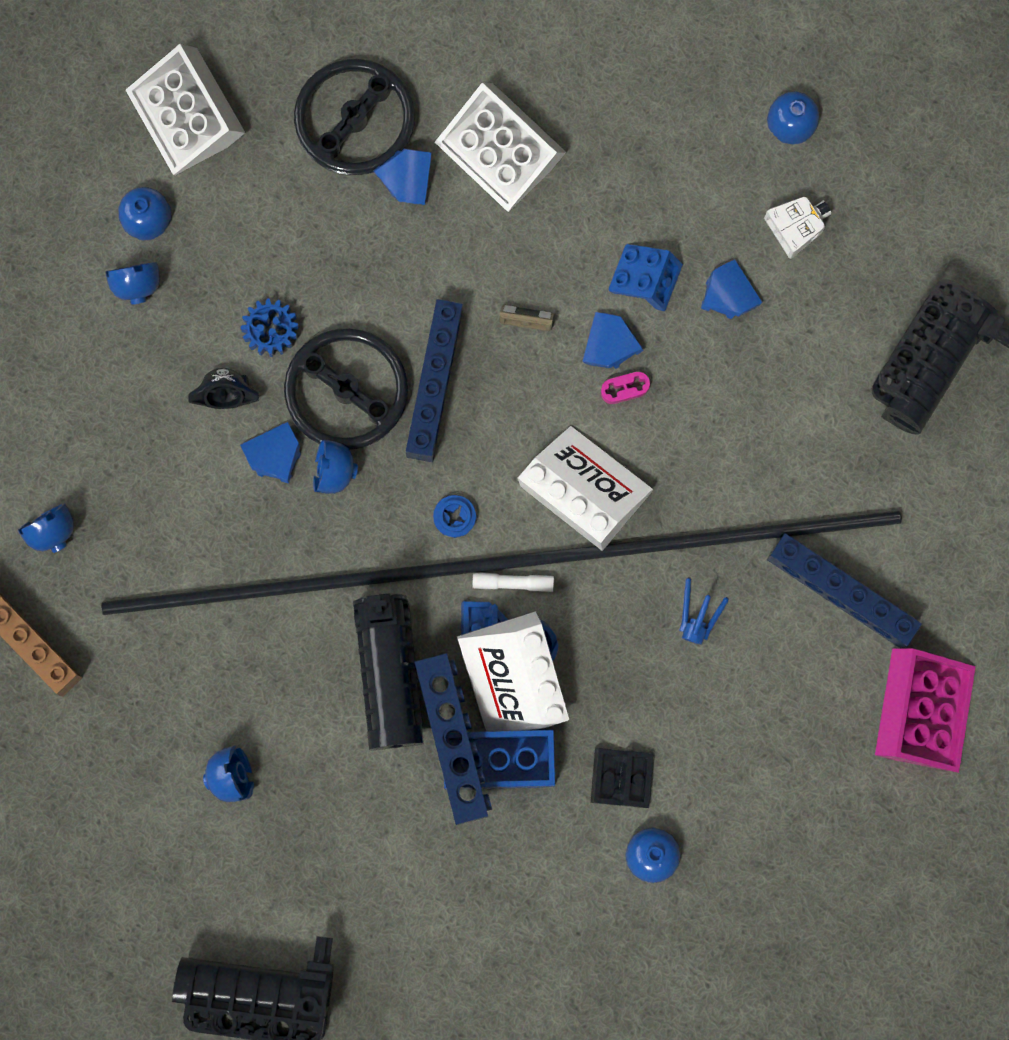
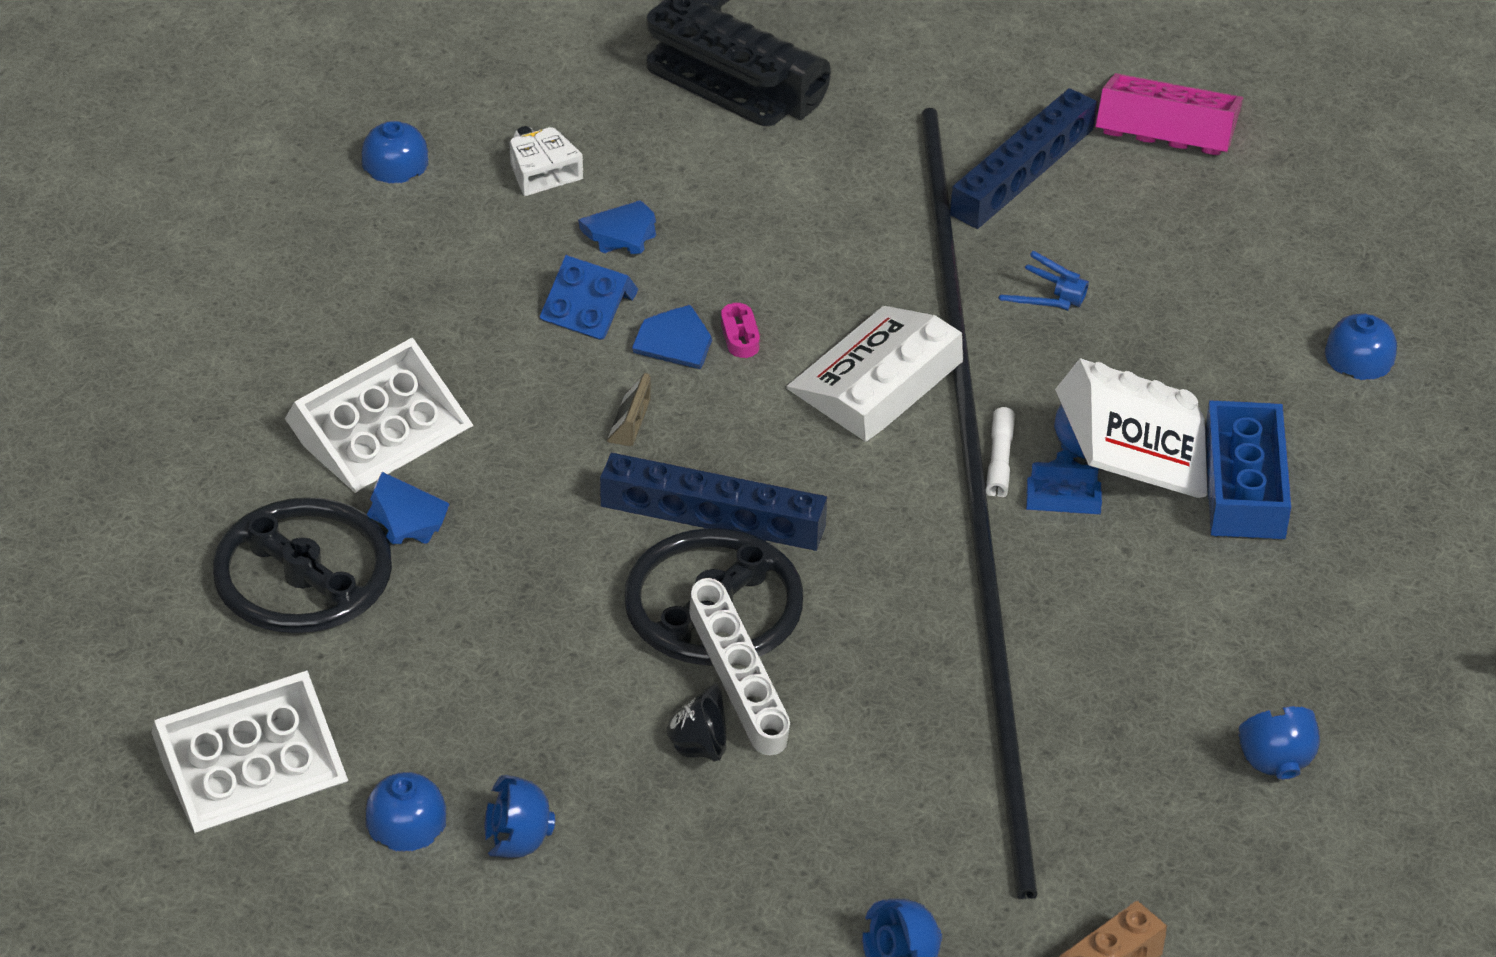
camera: 85 degrees left, 35 degrees down
(273, 453) = (804, 682): blue slope -> none
(279, 407) = (739, 650): none -> white beam
(283, 321) = (627, 679): blue gear -> none
(334, 467) = (830, 605): blue cylinder -> none
(388, 671) = (1129, 559): black piece -> none
(428, 672) = (1228, 482): dark blue brick -> none
(451, 504) = (901, 492): blue gear -> none
(633, 782) = (1262, 361): black slope -> none

